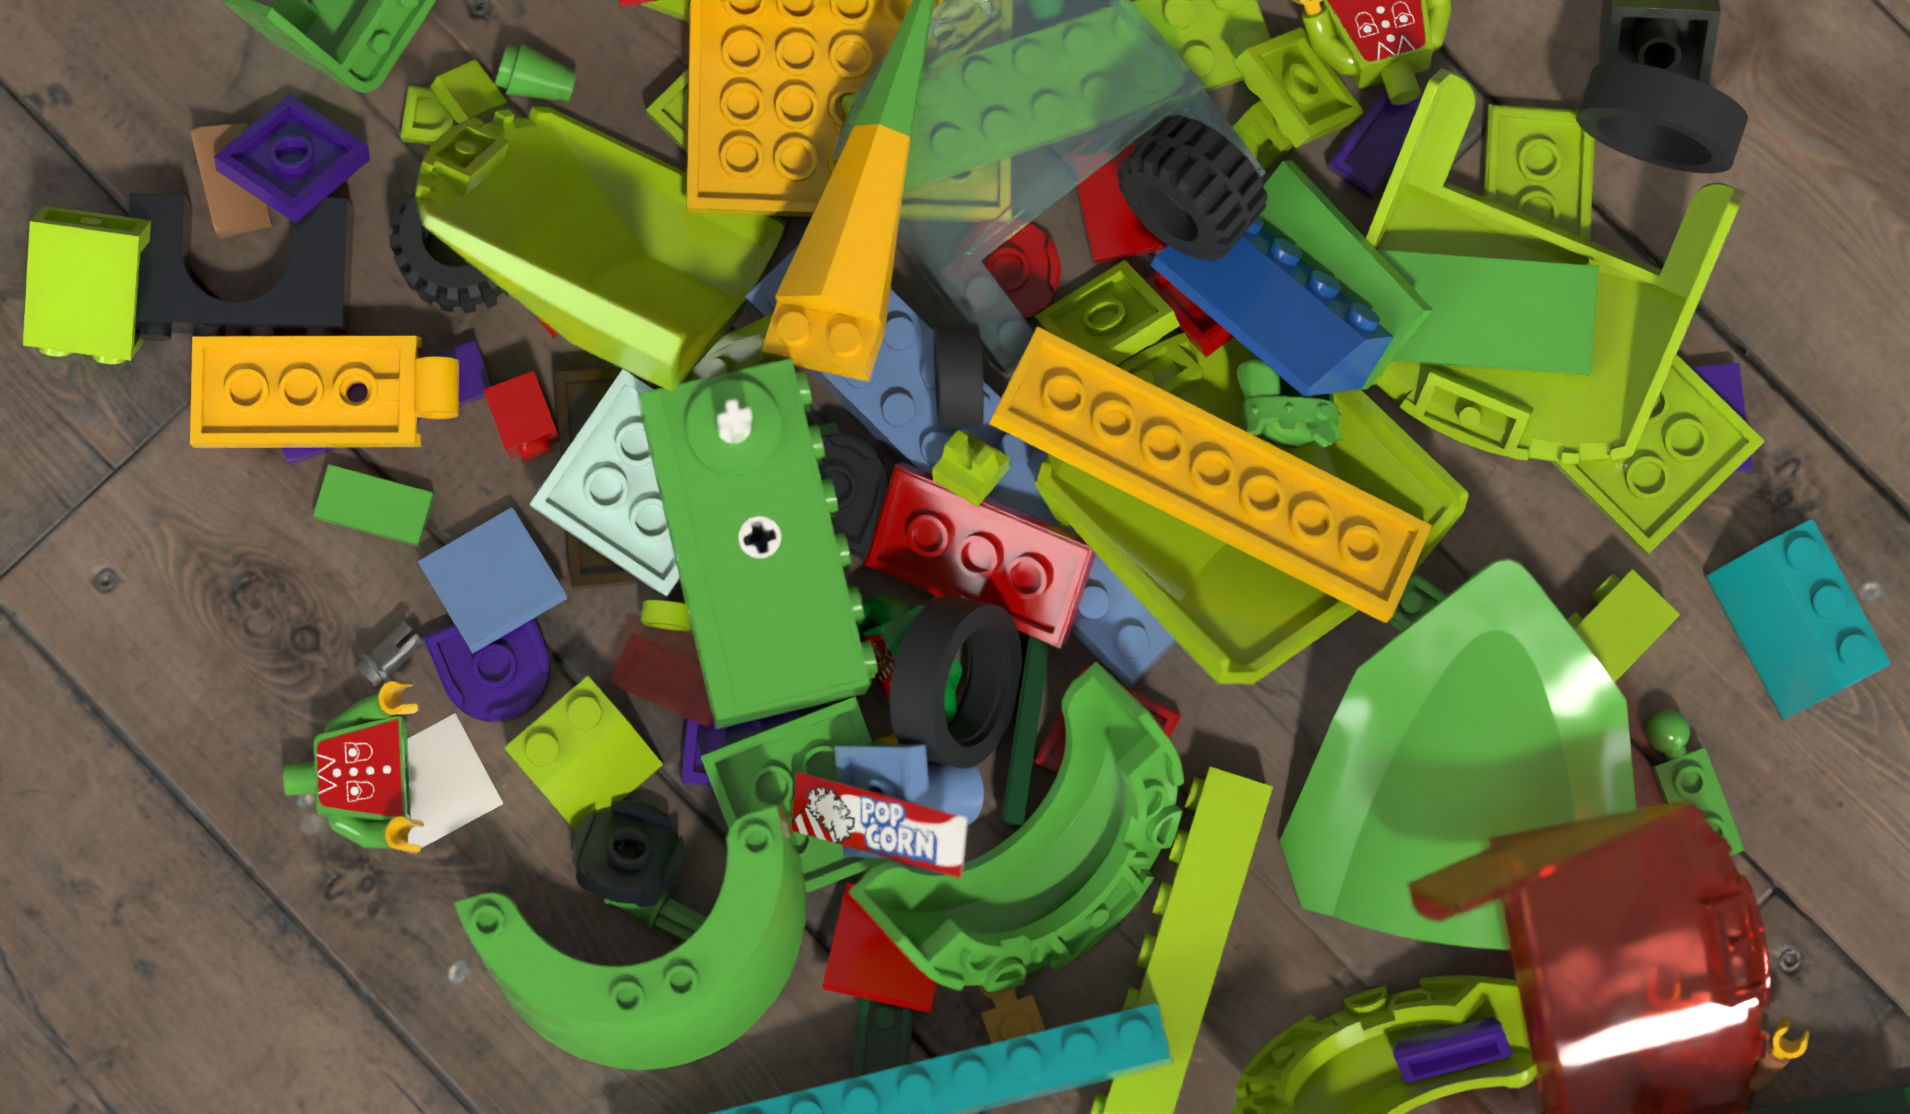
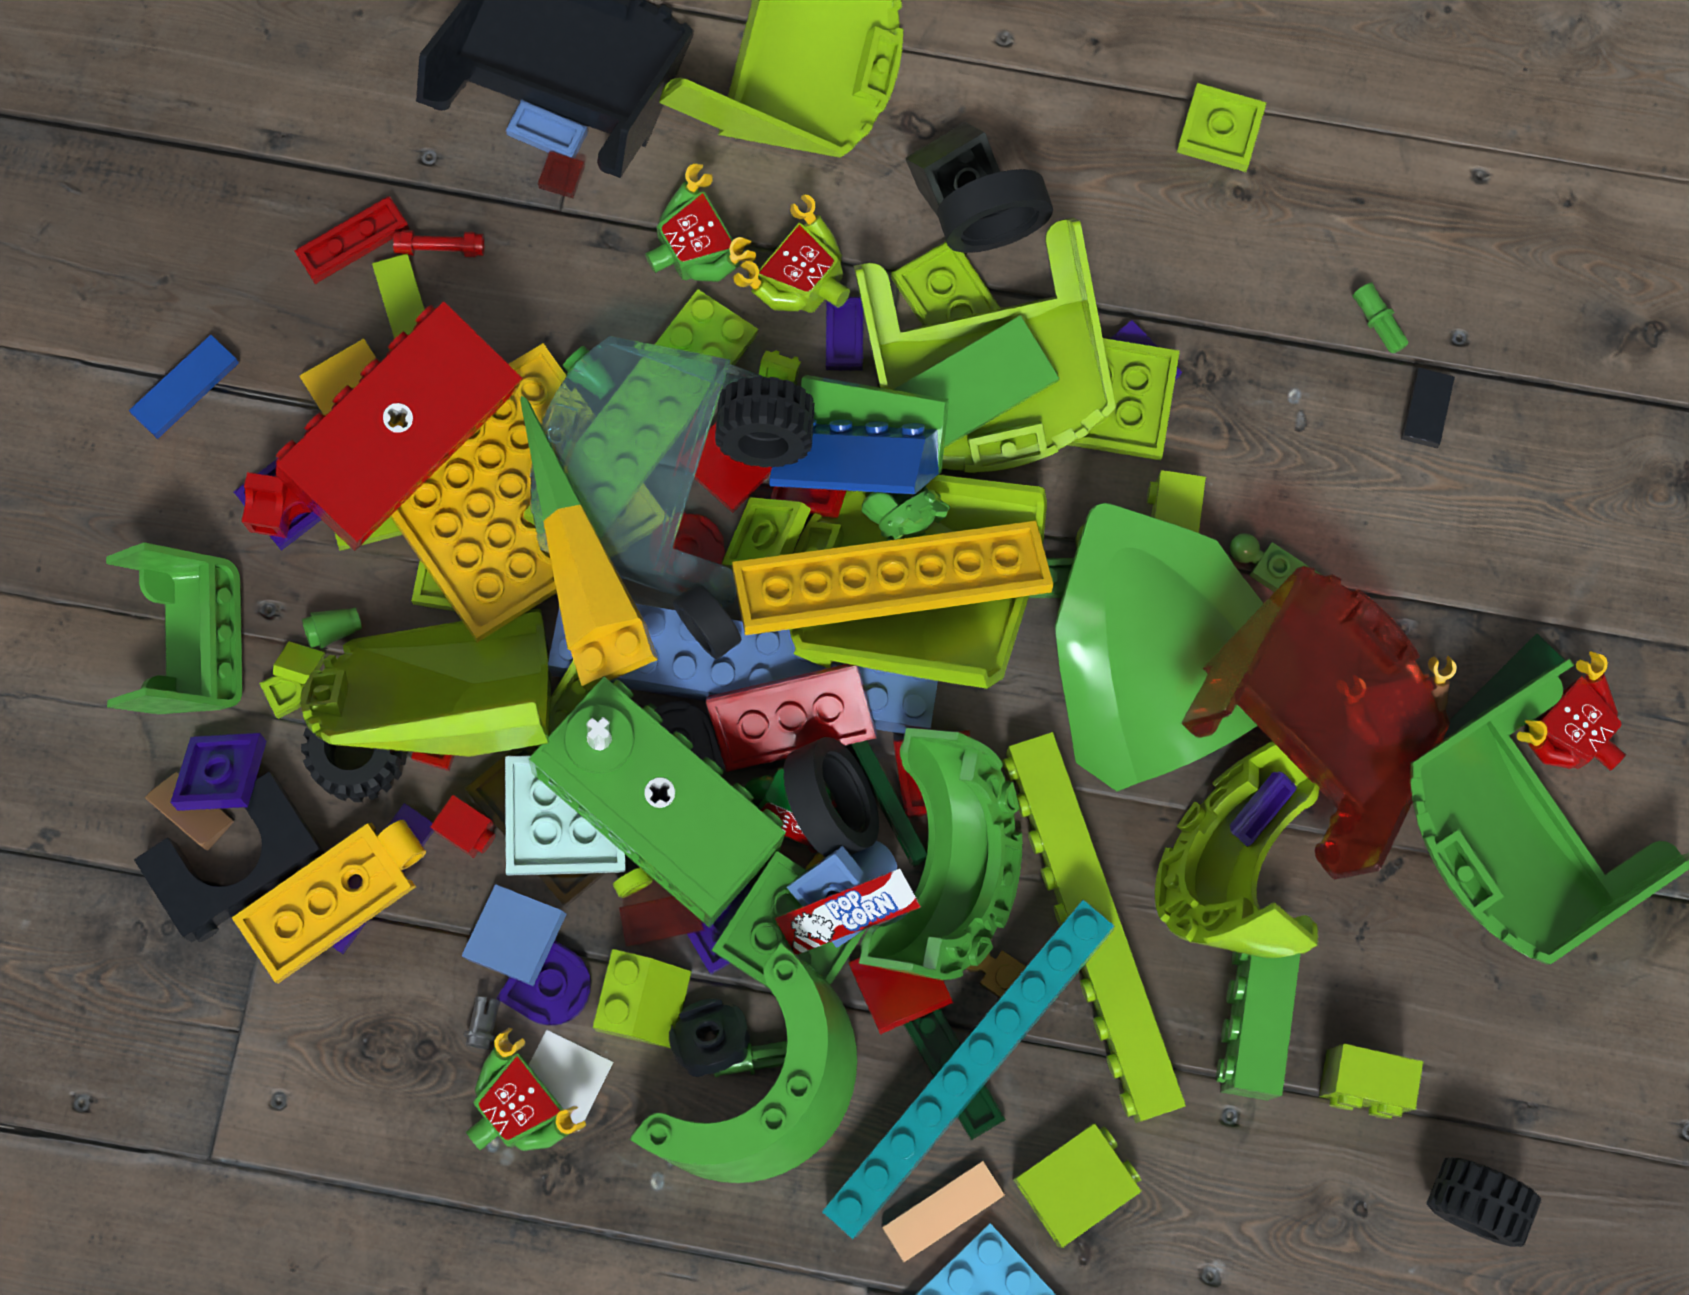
camera: 35 degrees left, 5 degrees down
(83, 283) = (142, 932): lime panel -> none
(374, 505) = (411, 941): bright green tile -> none
(970, 467) = (751, 670): lime tile -> none
(1297, 87) = (778, 333): lime plate -> none
(1797, 619) = (1270, 436): teal slope -> none

